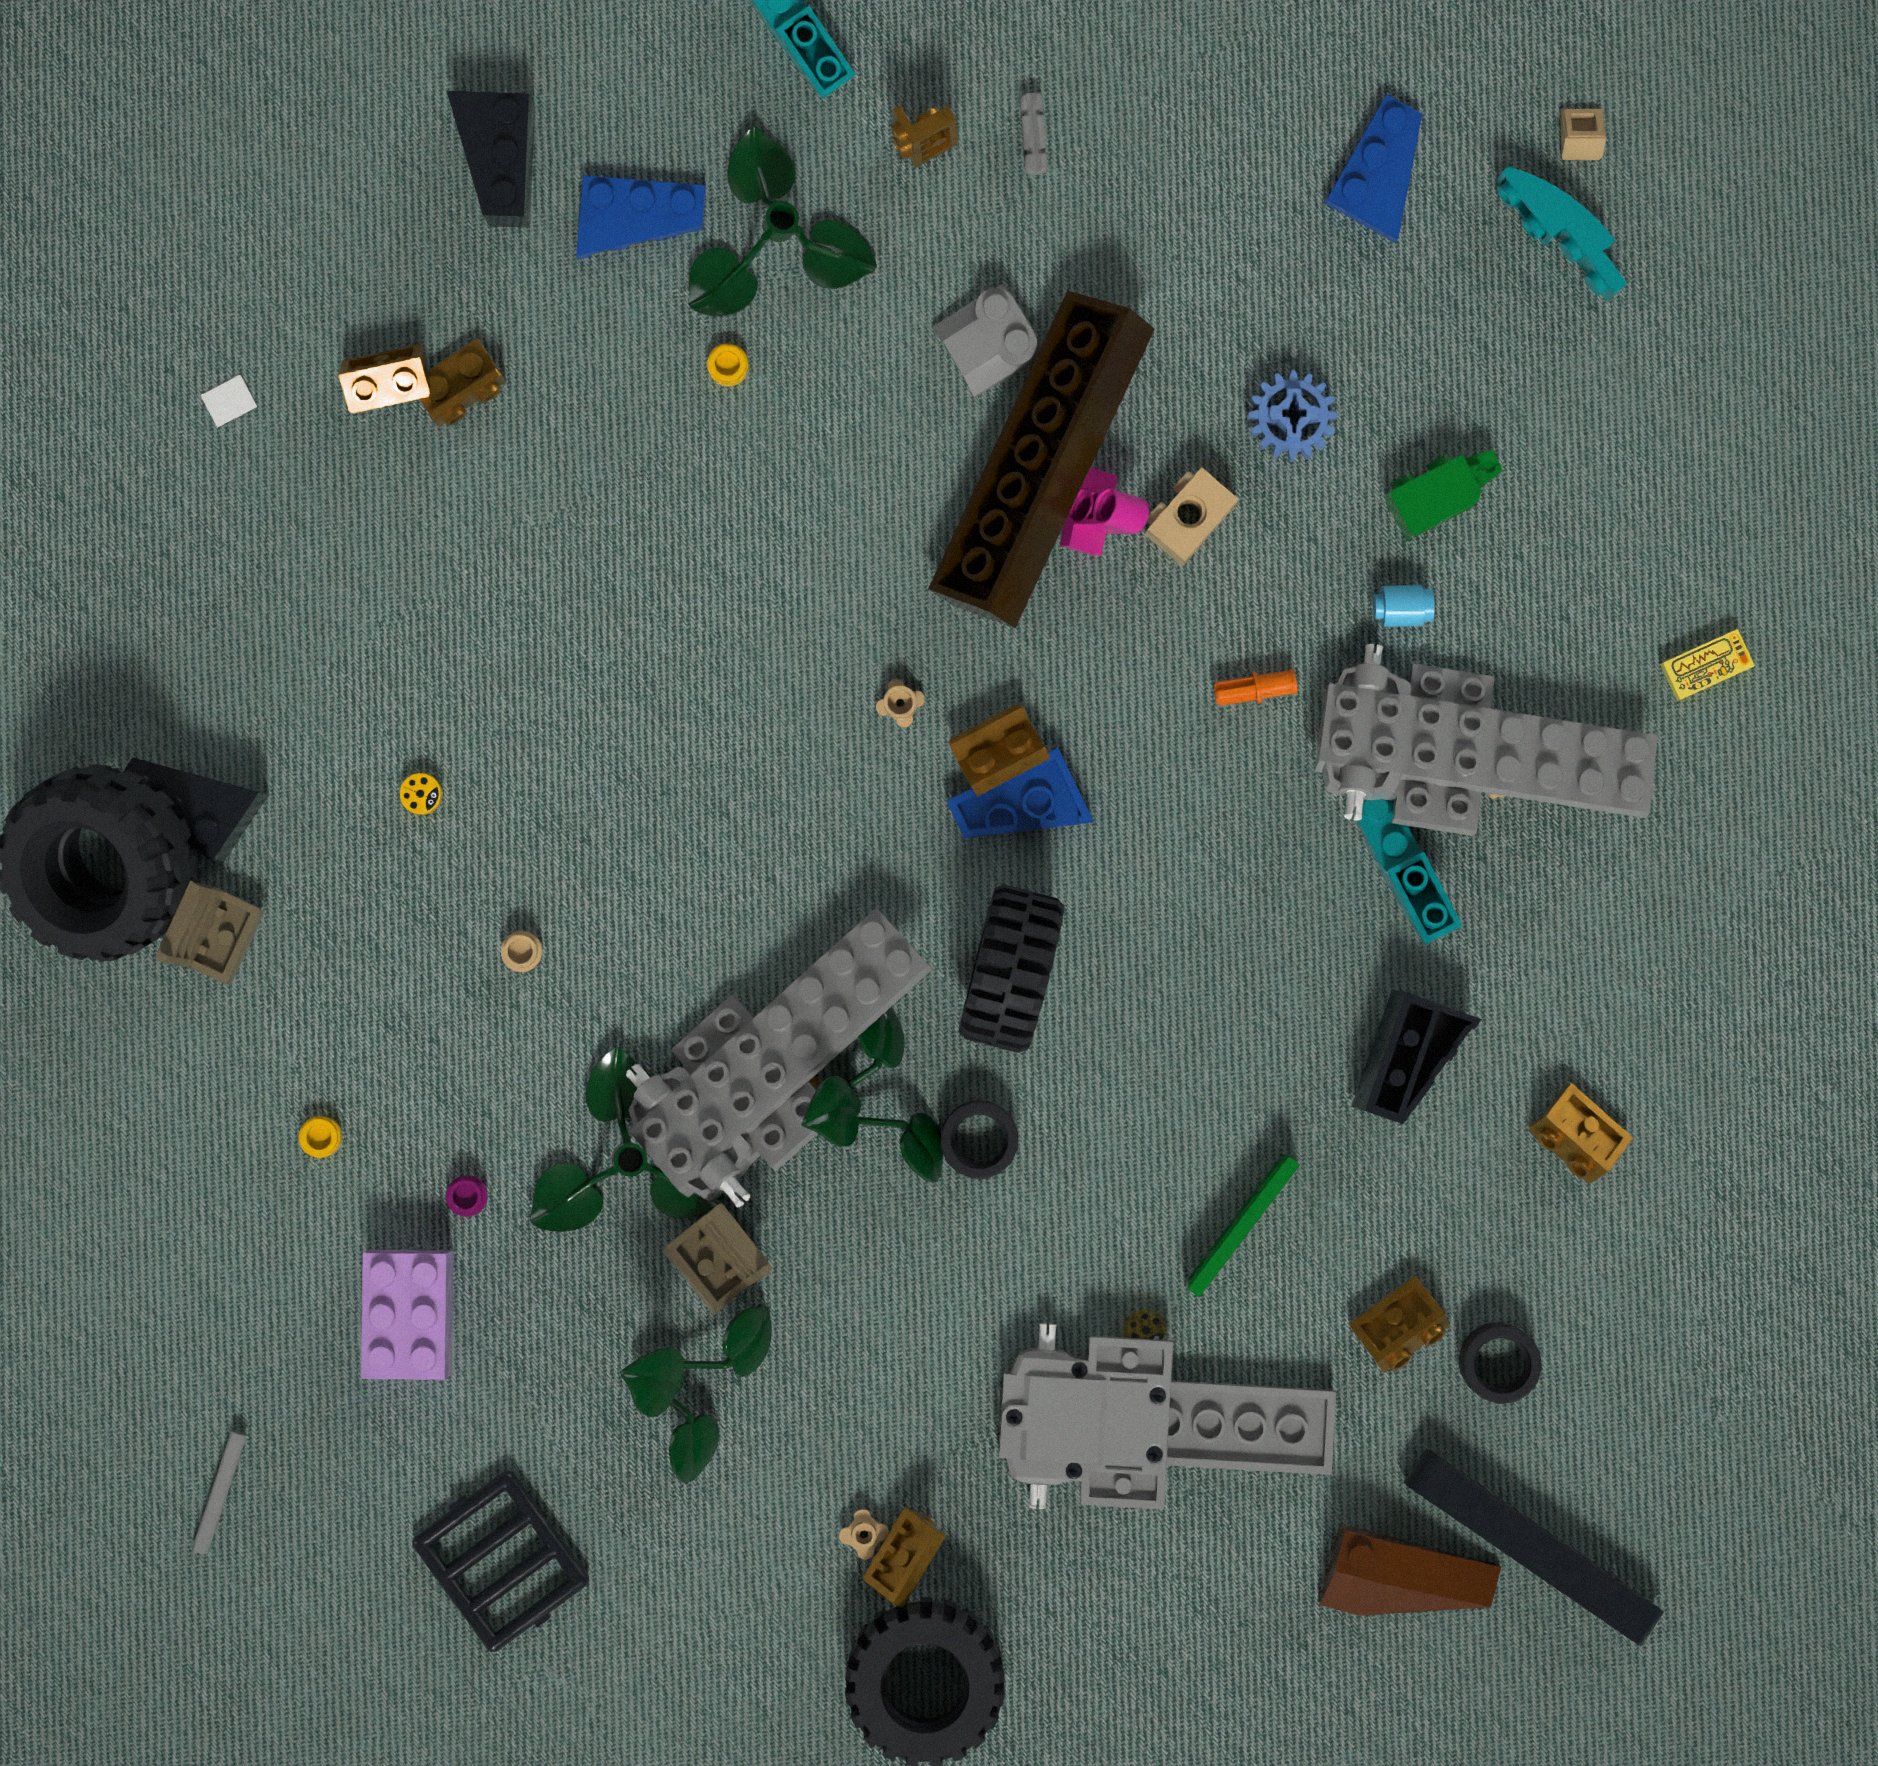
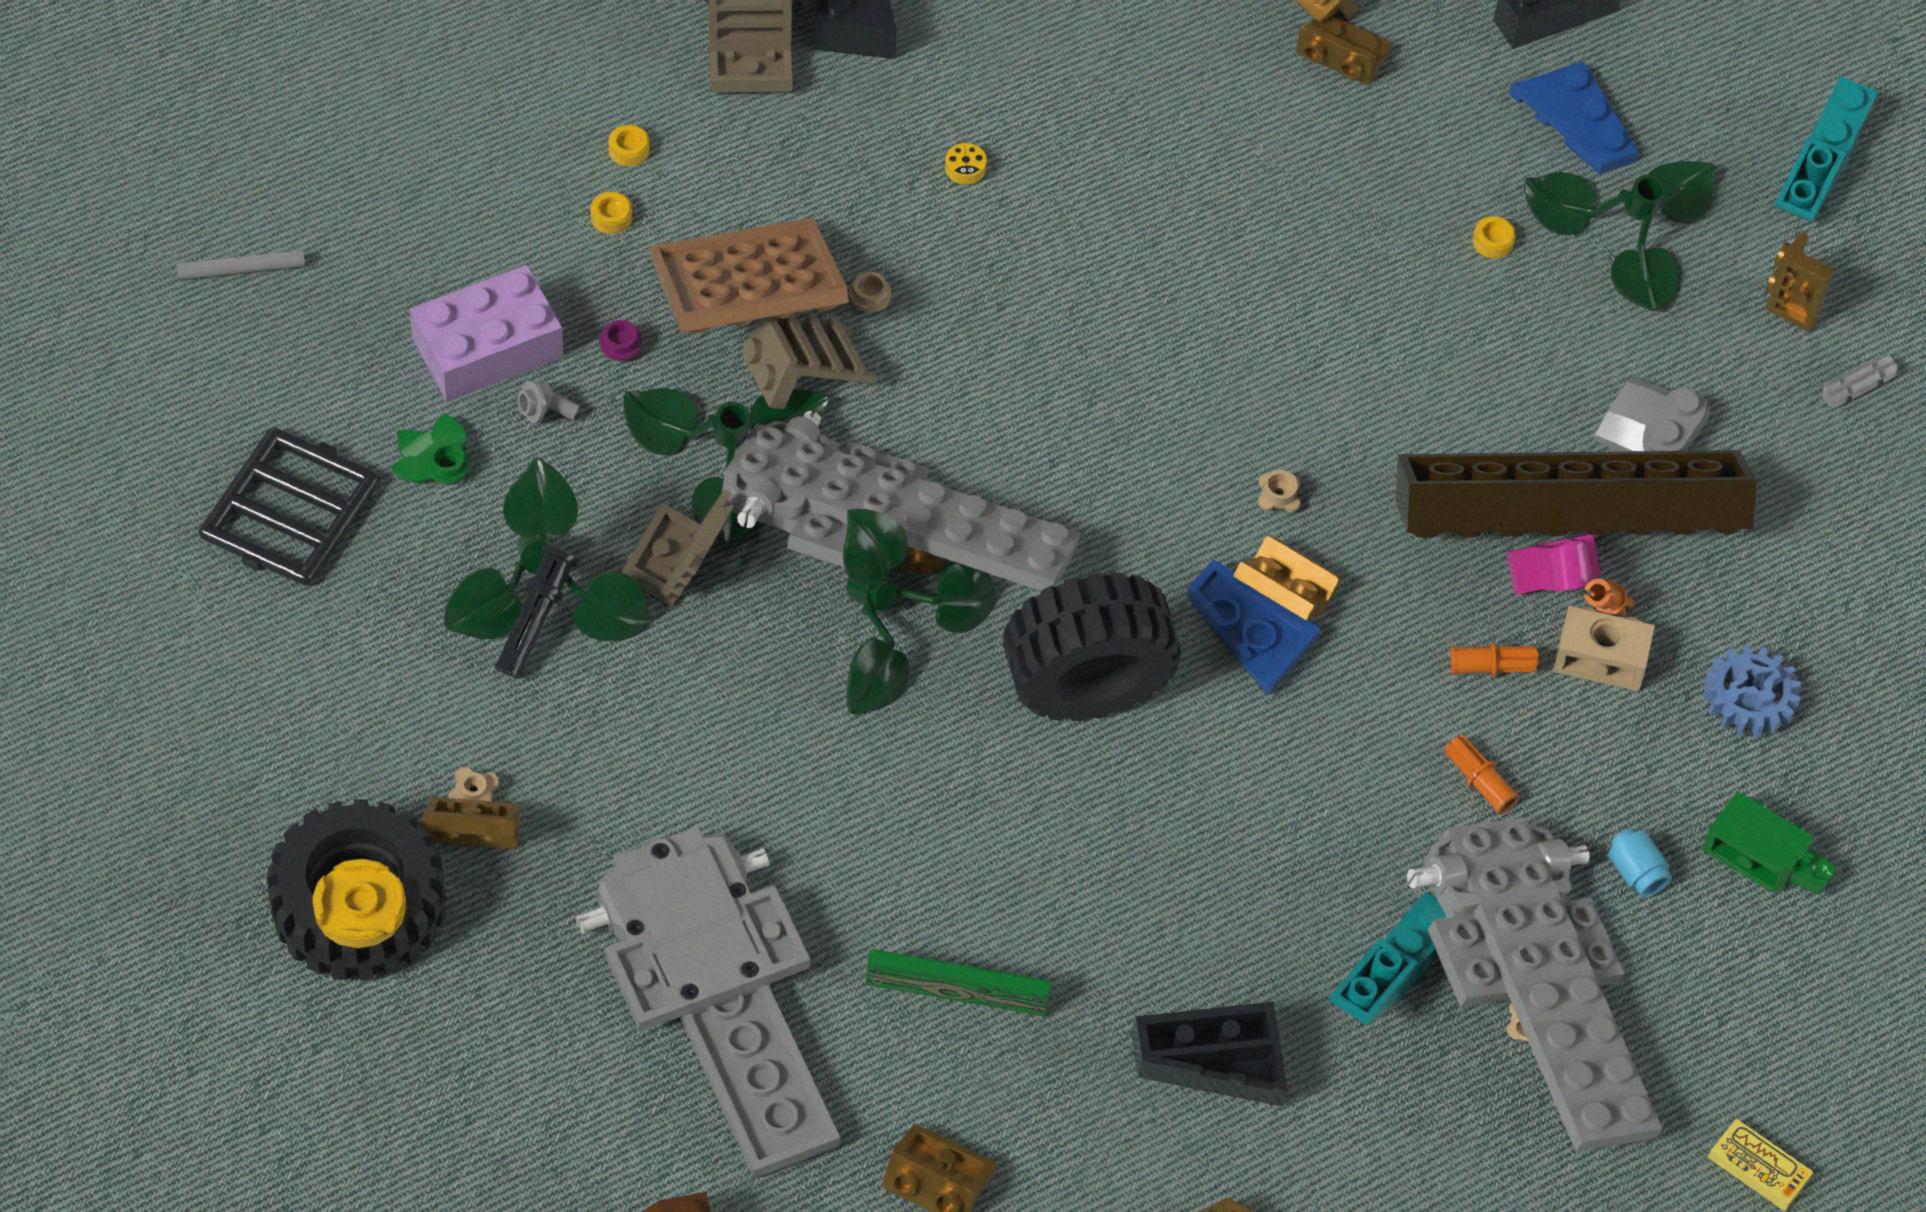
camera: 55 degrees right, 30 degrees down
(253, 1085) = (629, 145): none -> yellow tile
(469, 1062) = (748, 275): none -> medium nougat plate
(499, 1302) = (538, 397): none -> light grey plate
(500, 1414) = (427, 453): none -> green plate
(568, 1070) = (782, 352): none -> dark tan plate
(713, 1392) = (554, 563): none -> black pin
(962, 1700) = (359, 903): none -> yellow tile
(988, 1169) = (911, 753): black tyre -> none
(1145, 1324) = (816, 945): clear yellow tile -> none
(1154, 615) = (1493, 659): none -> orange axle
(1157, 490) = (1608, 597): none -> orange axle

